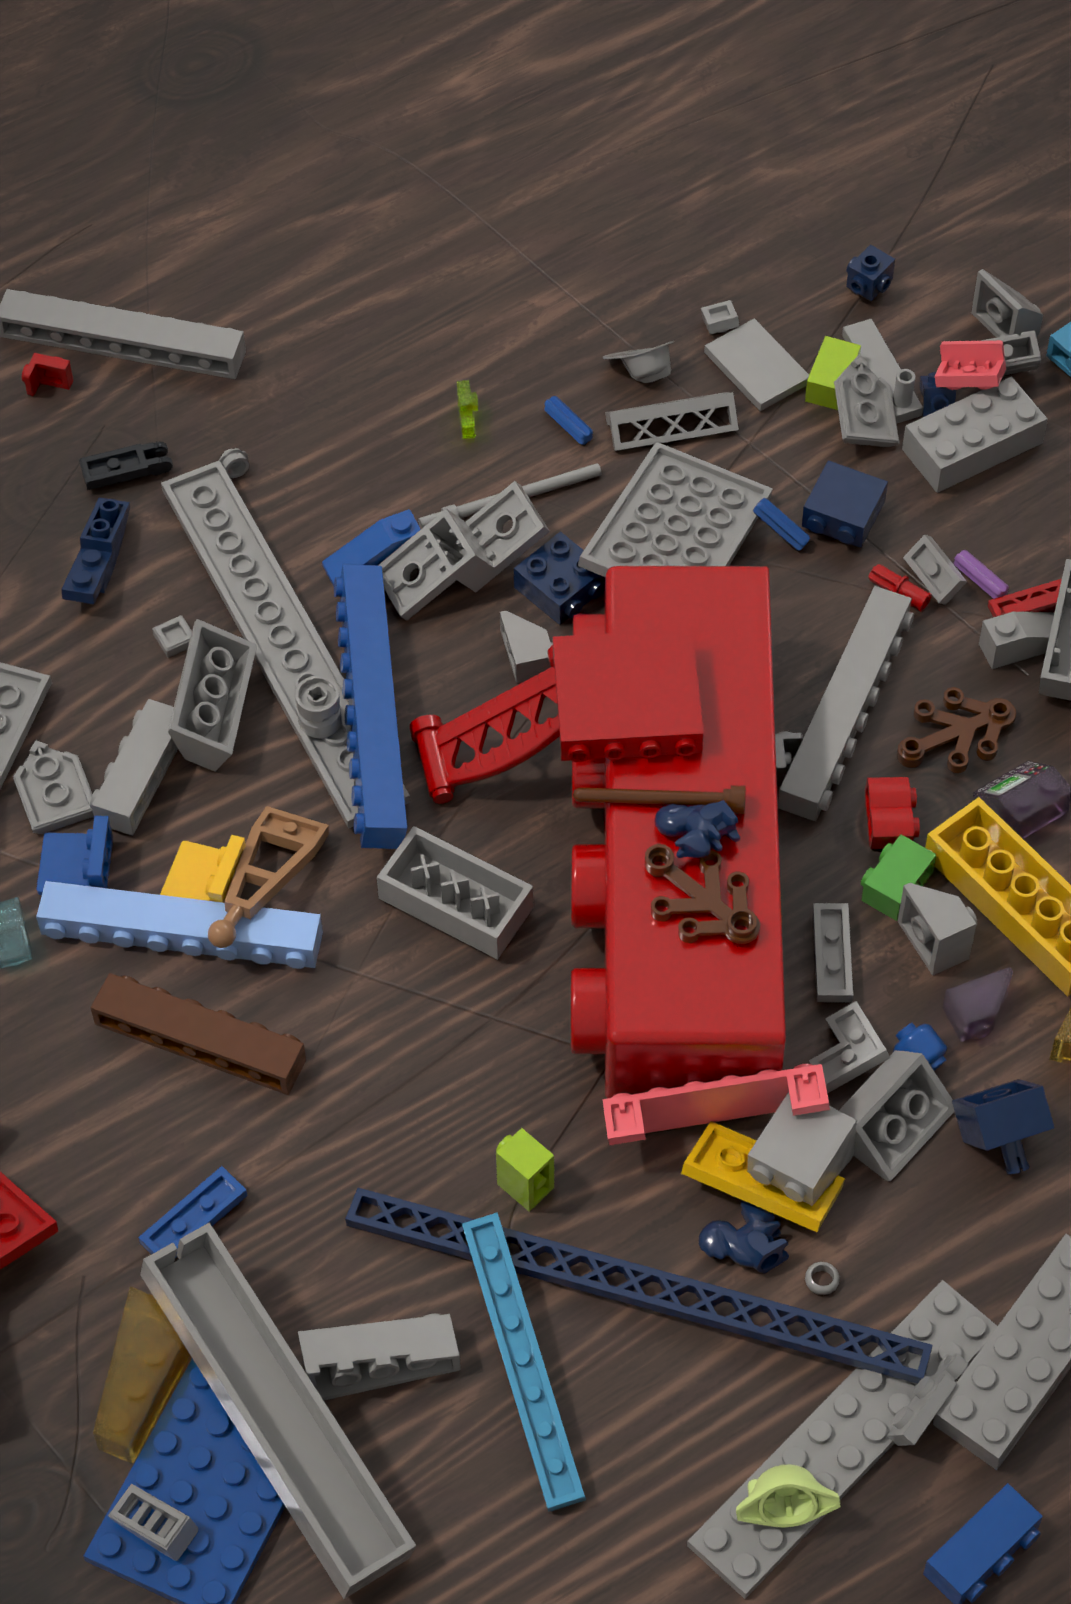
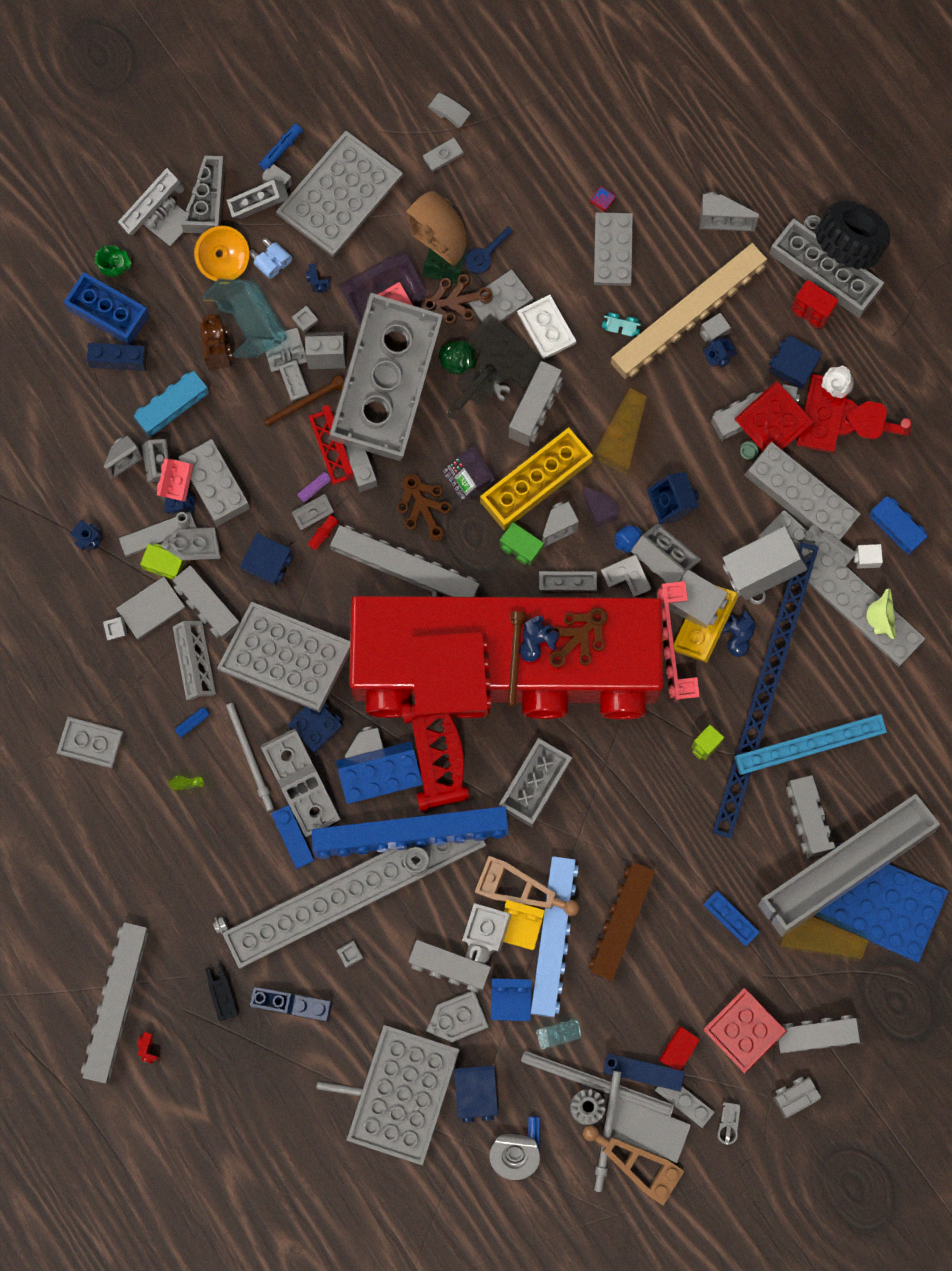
camera: 90 degrees left, 20 degrees up
(174, 1534) = (907, 909): light grey slope -> none
(191, 819) = (485, 932): none -> light grey plate
(211, 695) = (404, 923): light grey slope -> none
(472, 648) = (379, 772): none -> blue brick
(535, 297) = (90, 742): none -> light grey tile
(646, 364) = (148, 674): light grey piece -> none
(768, 428) = (205, 601): none -> light grey brick
(781, 524) = (279, 597): blue axle -> none
(880, 1268) = (763, 563): none -> light grey brick
(890, 810) = (479, 546): red brick -> none
(913, 1484) = (868, 556): none -> white brick

